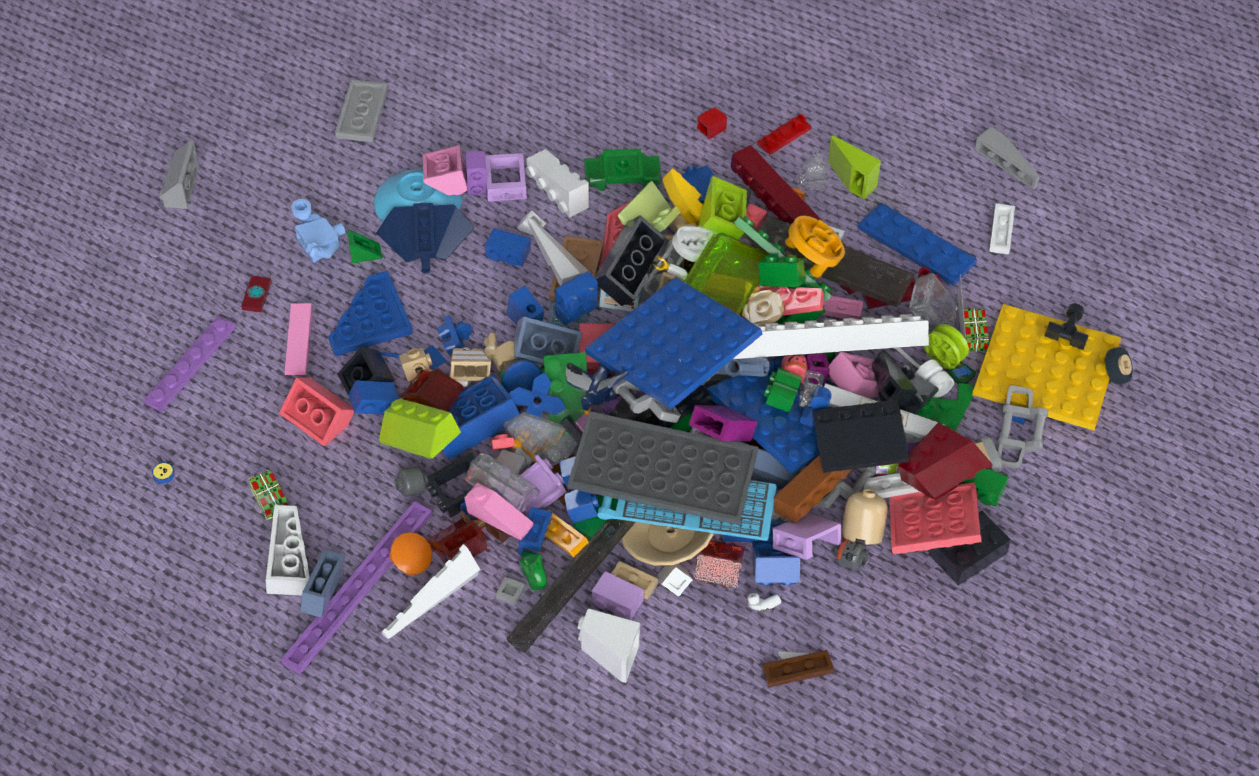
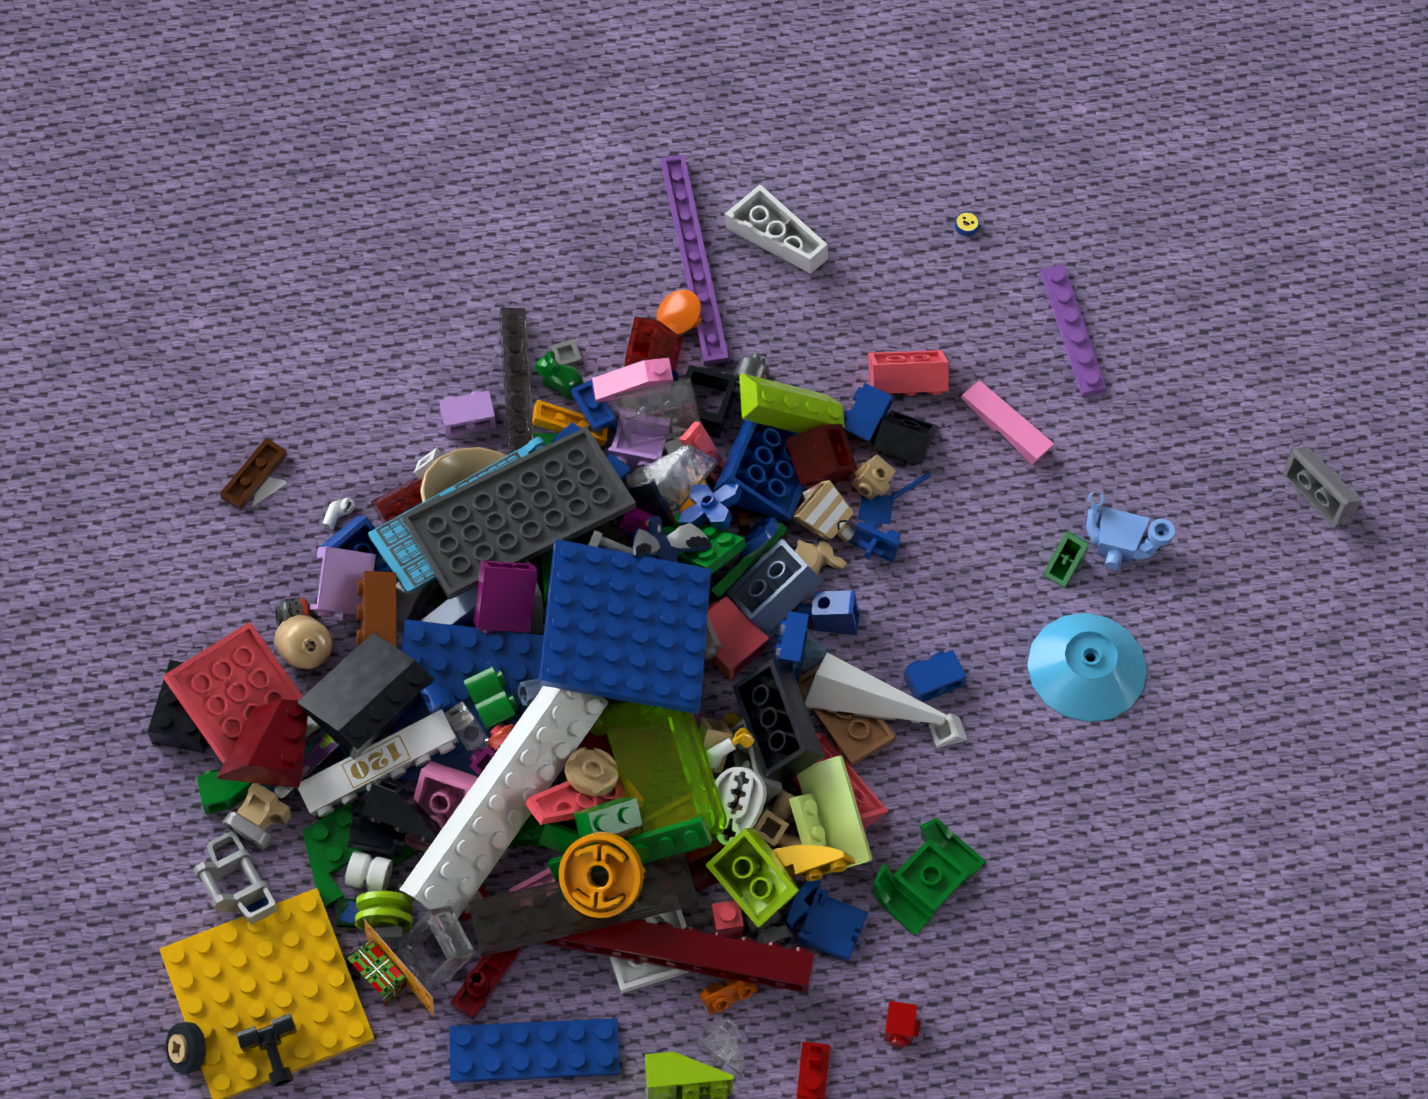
camera: 135 degrees right, 10 degrees up
(256, 294) = (1104, 439): dark red tile -> none
(267, 492) = (855, 260): piece -> none
(322, 583) = (715, 222): sand blue brick -> none
(361, 110) = (1267, 720): light grey plate -> none
(372, 318) = (972, 501): blue plate -> none
(424, 232) = (1027, 626): dark blue panel -> none
(445, 170) = (1087, 698): bright pink slope -> none
(447, 581) = (624, 293): white wedge -> none
(476, 172) = (1056, 724): medium lavender brick -> none
(515, 190) = (1036, 790): lavender window -> none
(558, 182) = (972, 793): white wedge -> none
(610, 641) = (429, 358): white slope -> none
(636, 577) = (470, 437): tan plate -> none

